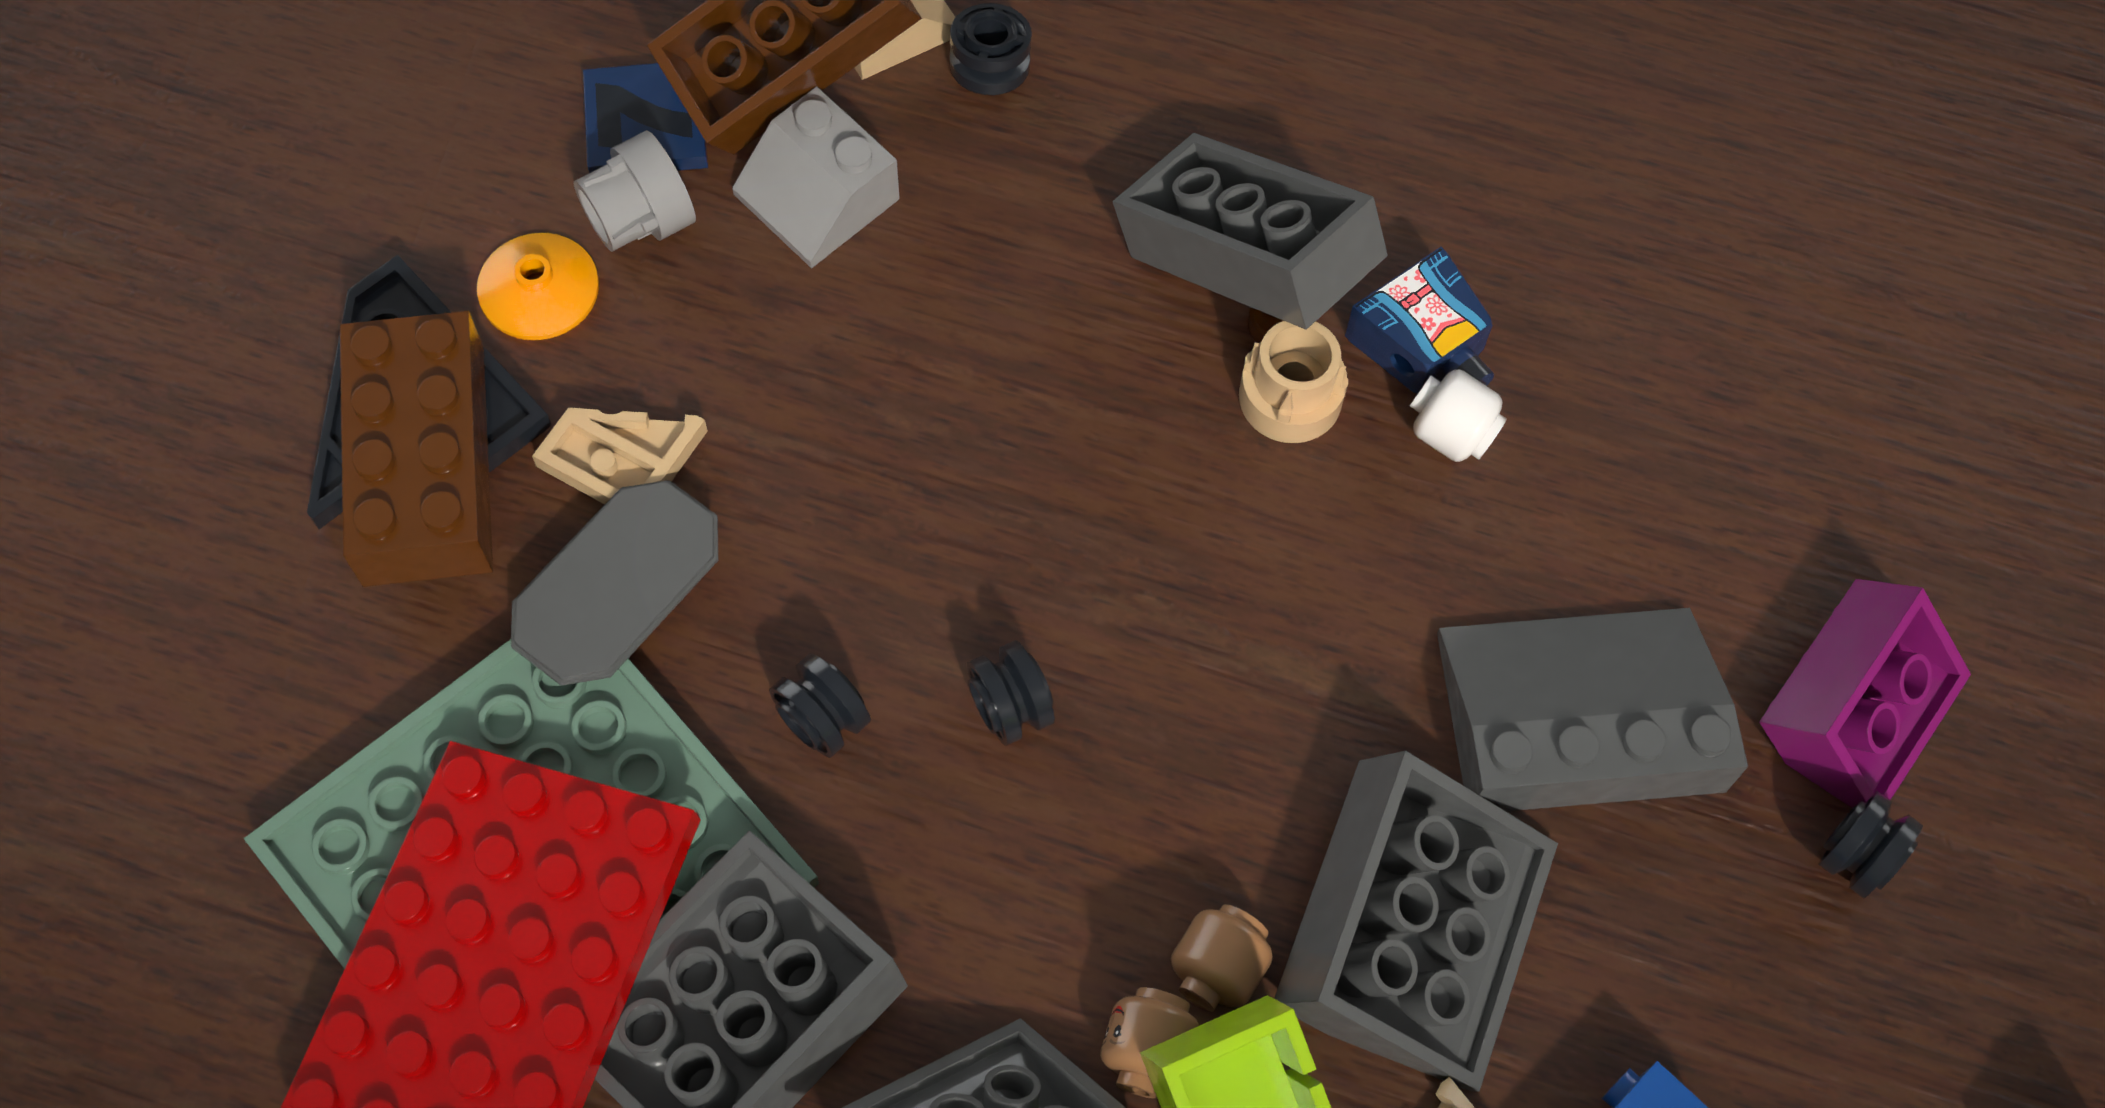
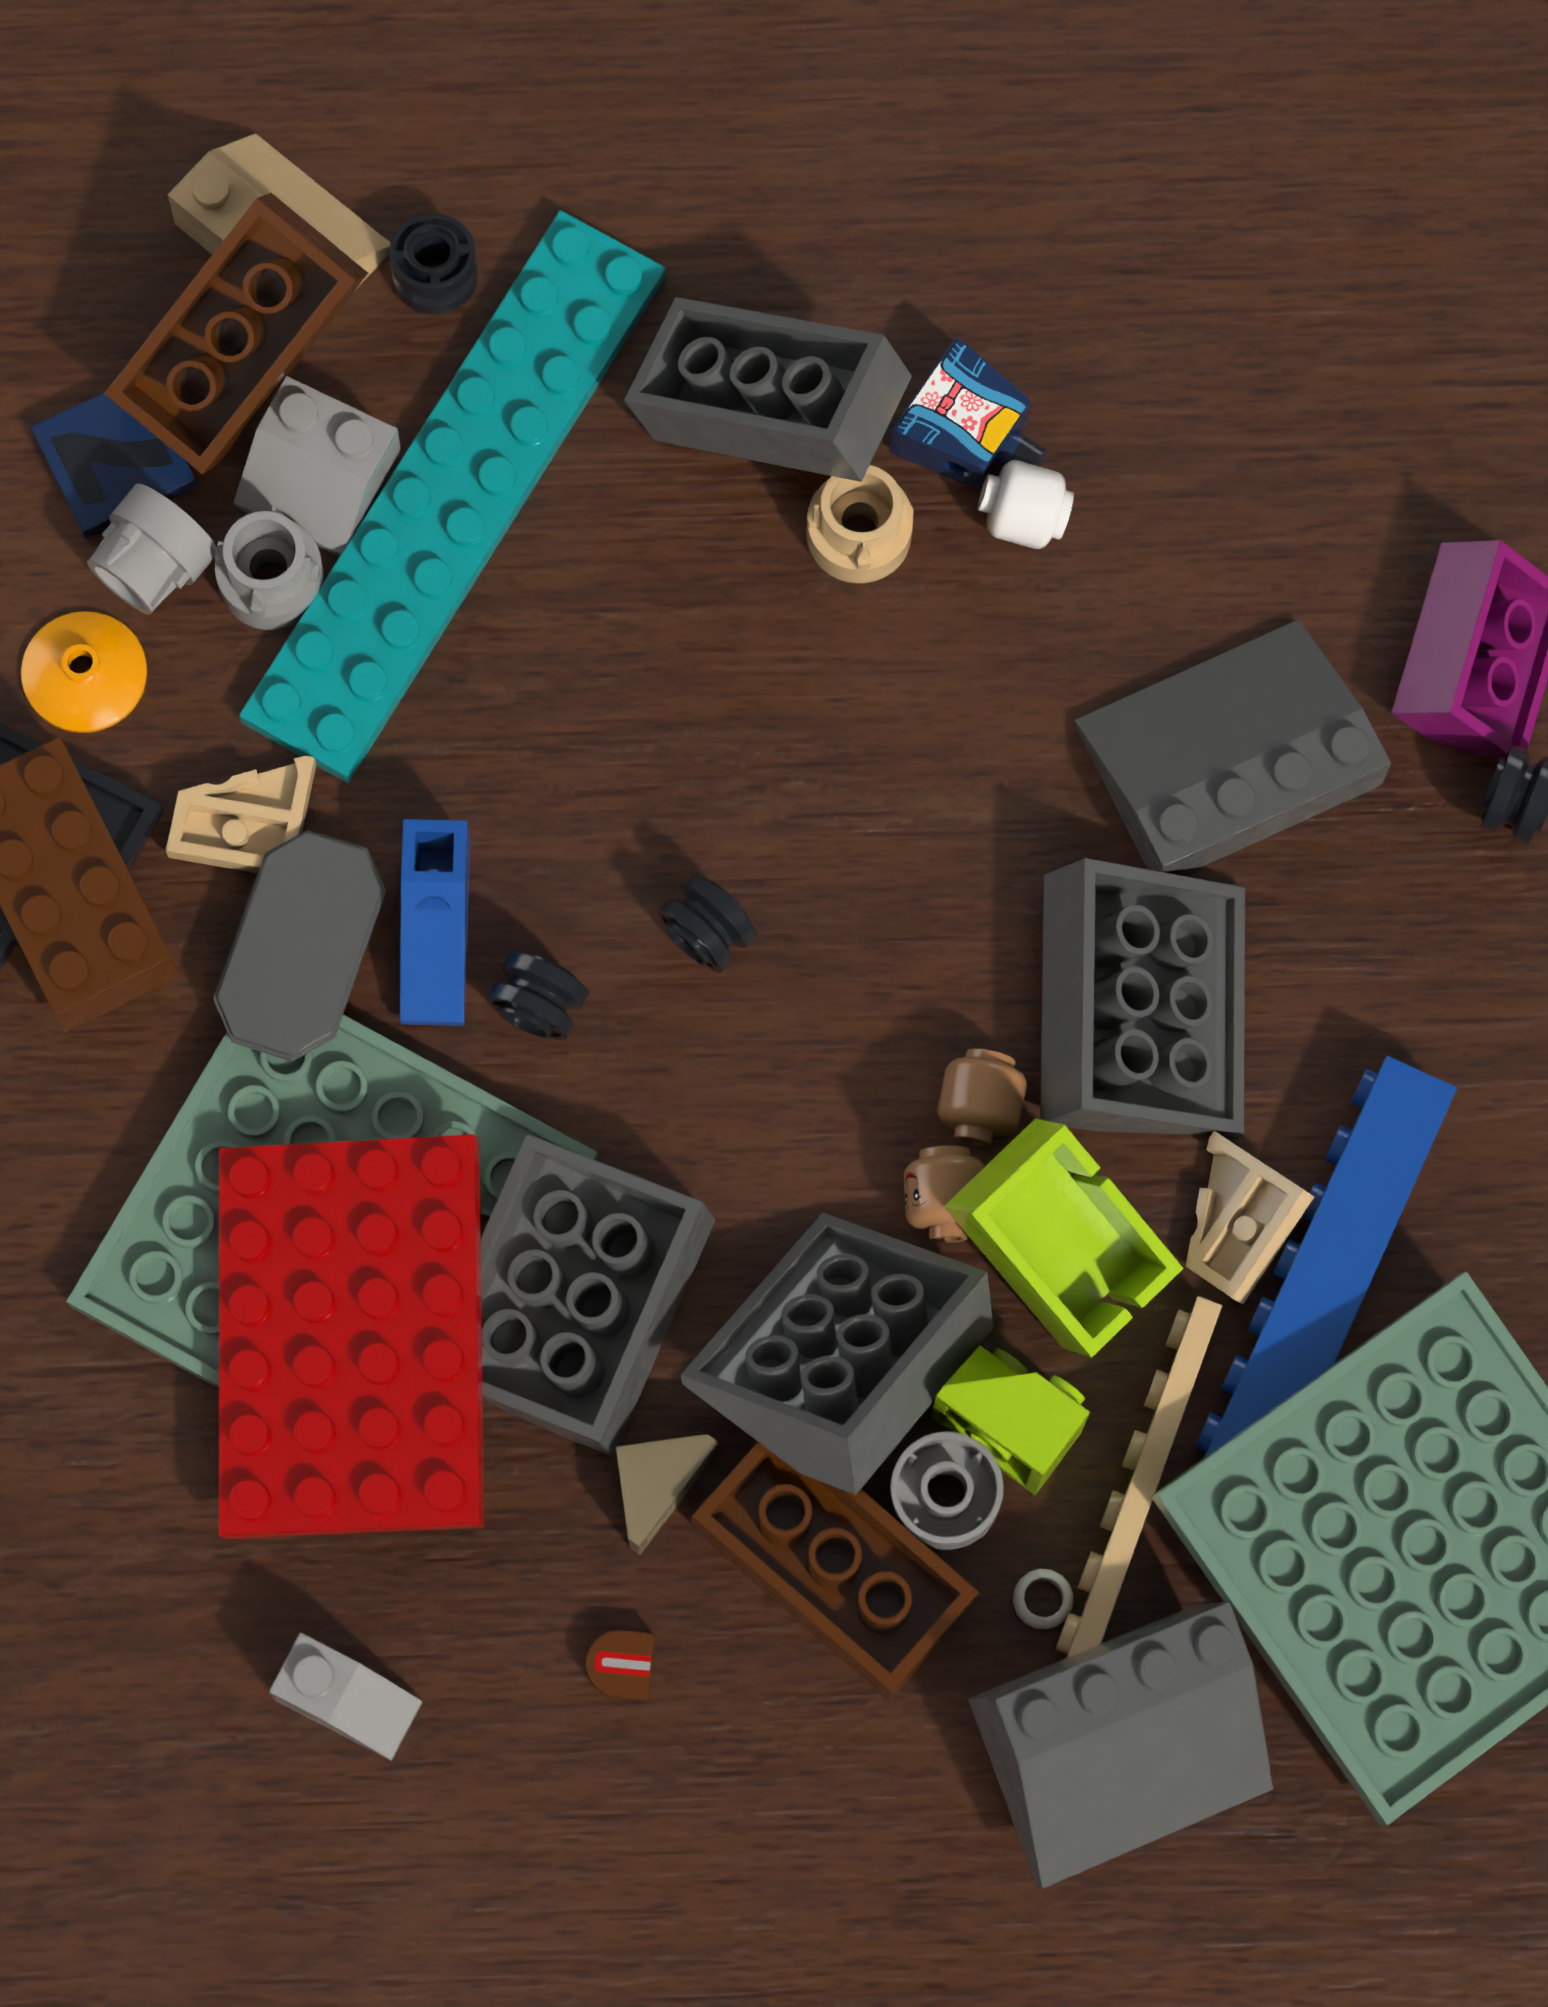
camera: 20 degrees left, 10 degrees up
(735, 247) = (260, 540): none -> light grey piece
(751, 600) = (434, 921): none -> blue slope
(923, 249) = (453, 497): none -> teal plate

